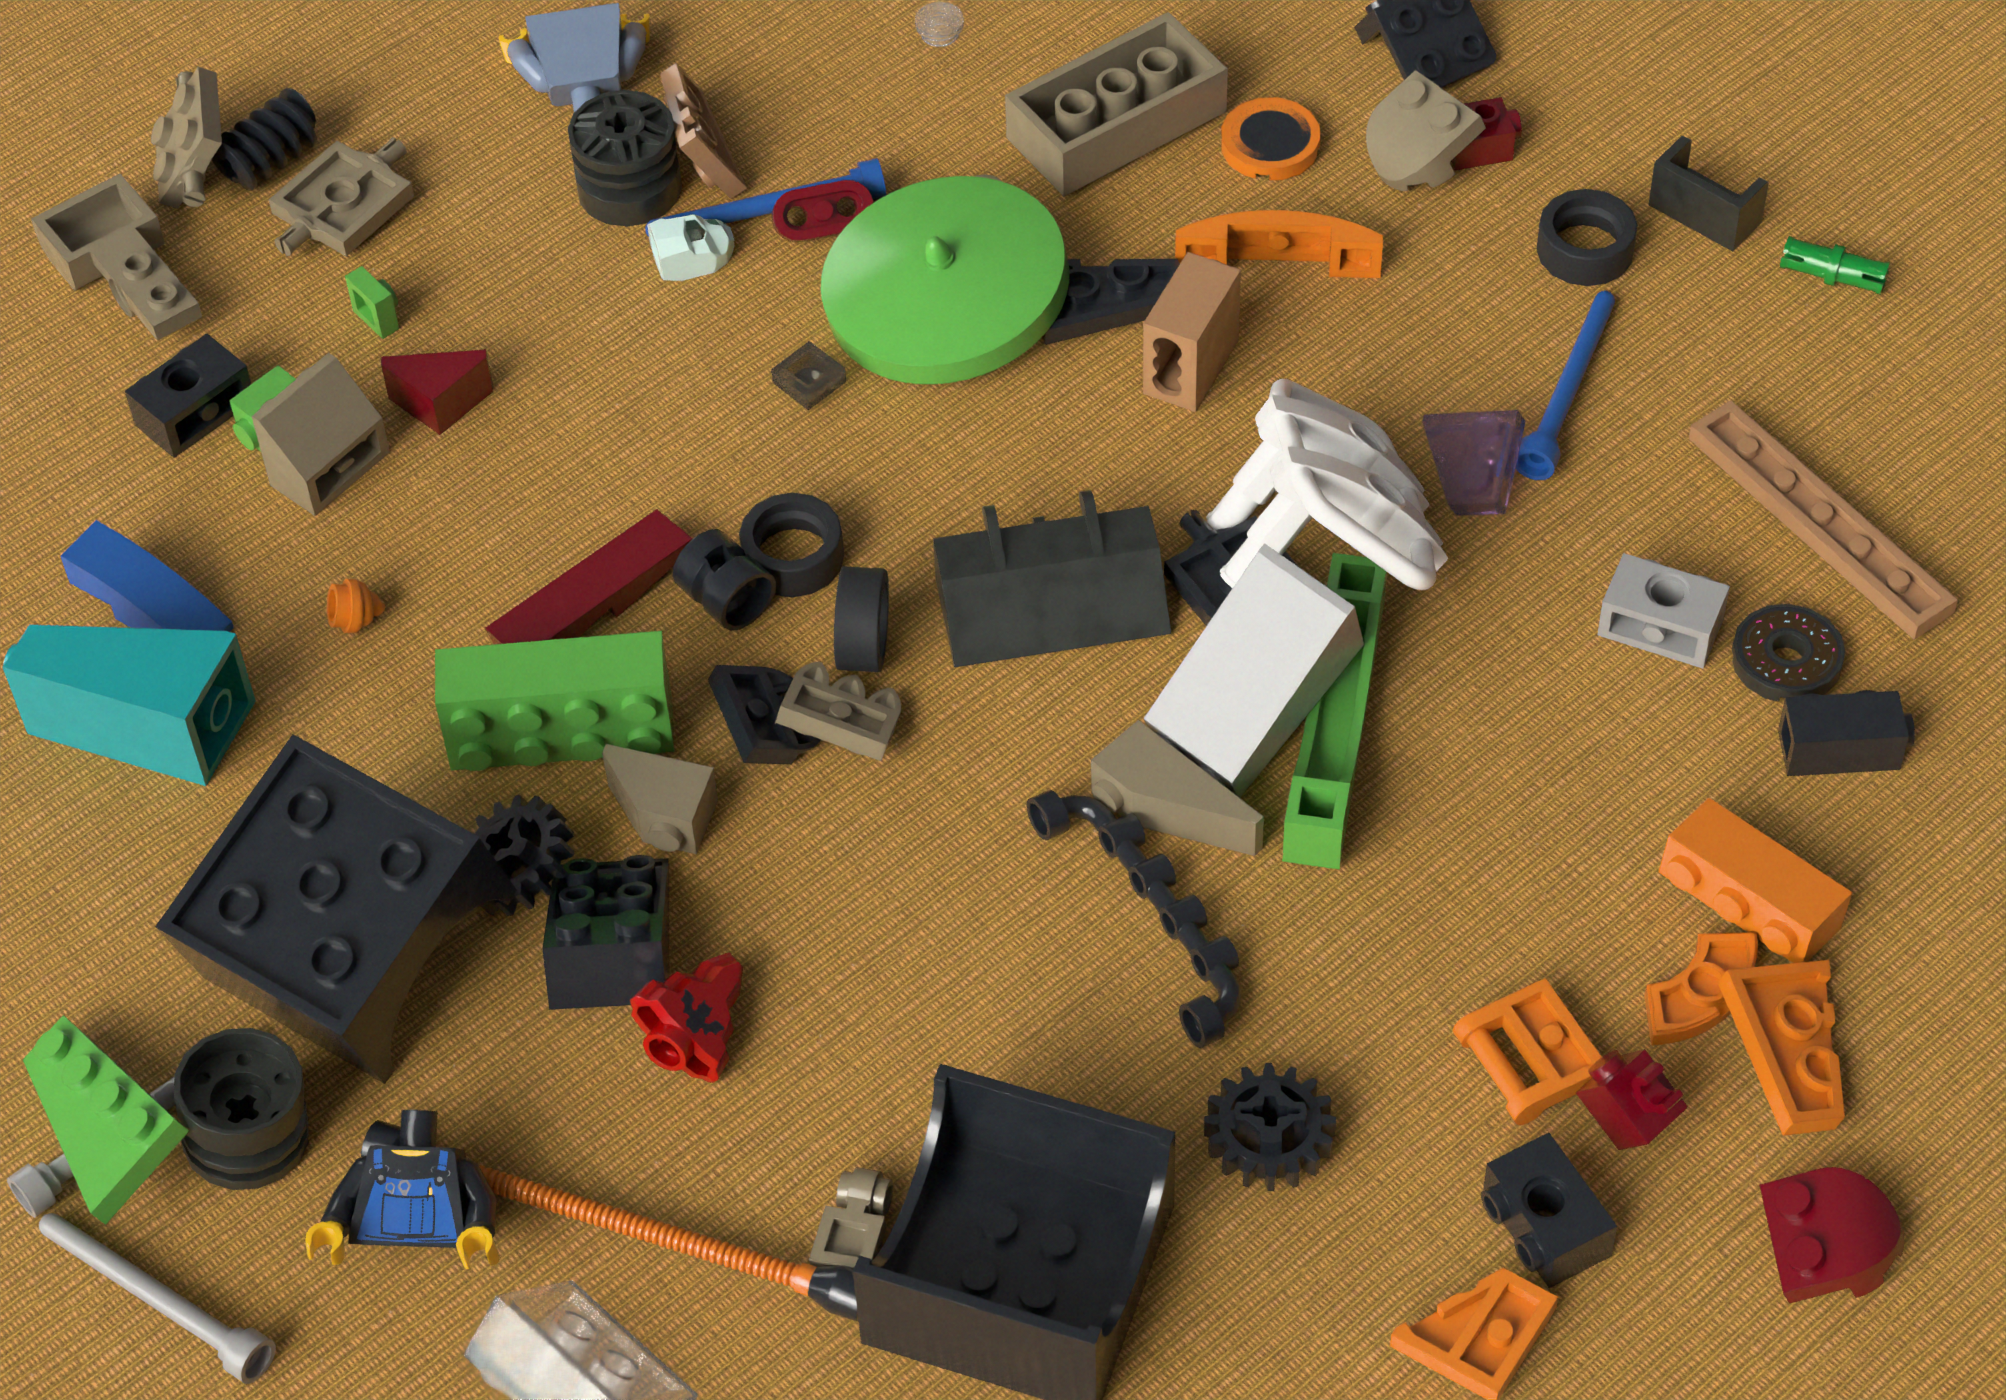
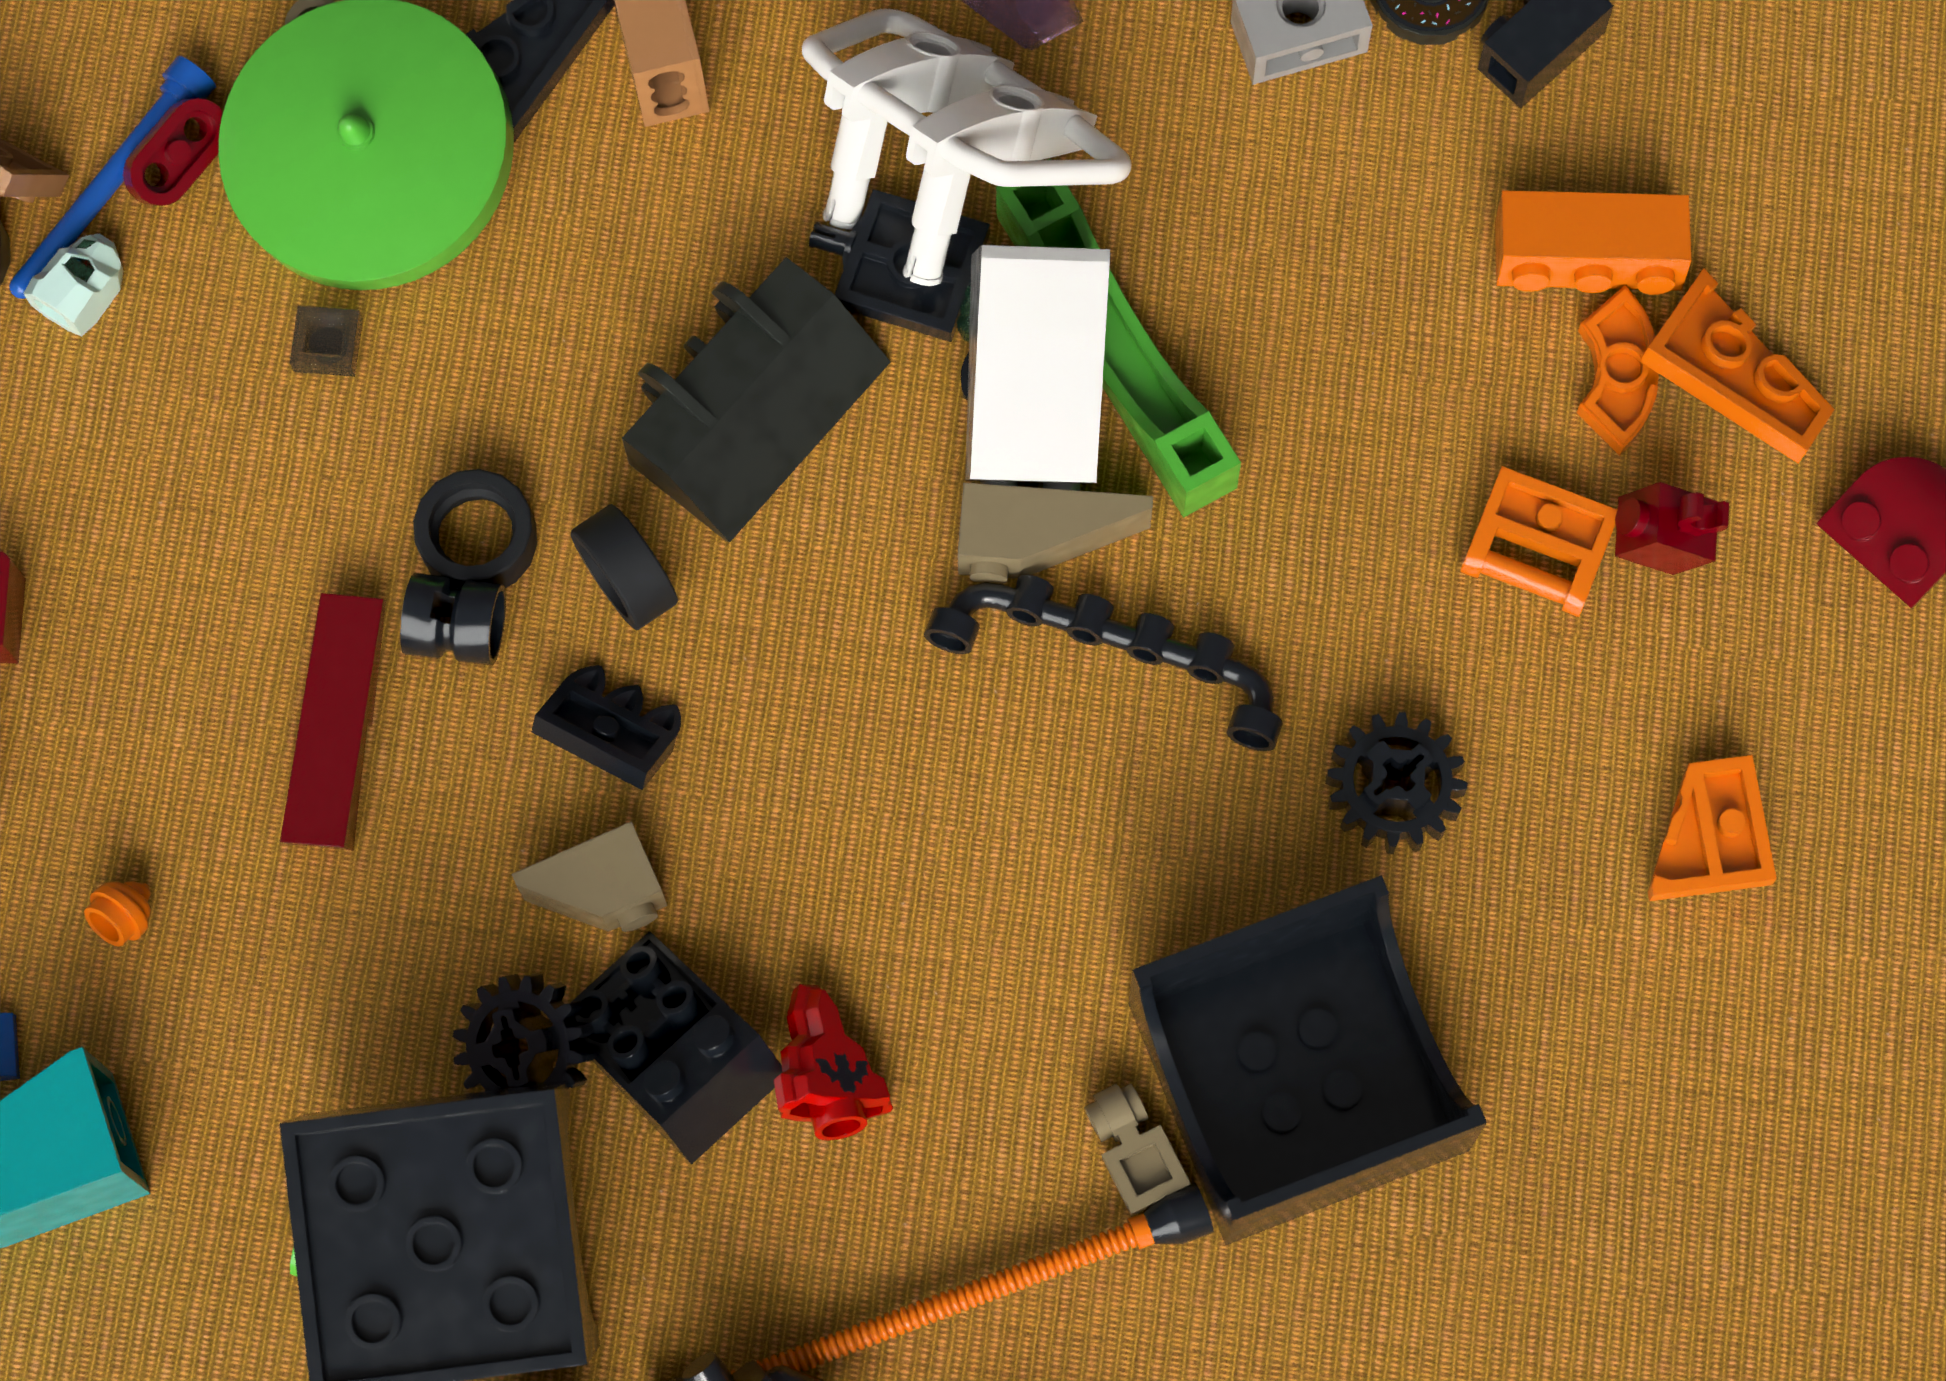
camera: 40 degrees left, 20 degrees up
(553, 700) = (425, 867): bright green brick -> none
(840, 711) = (681, 672): dark tan plate -> none
(1544, 1178) = (1713, 672): black brick -> none

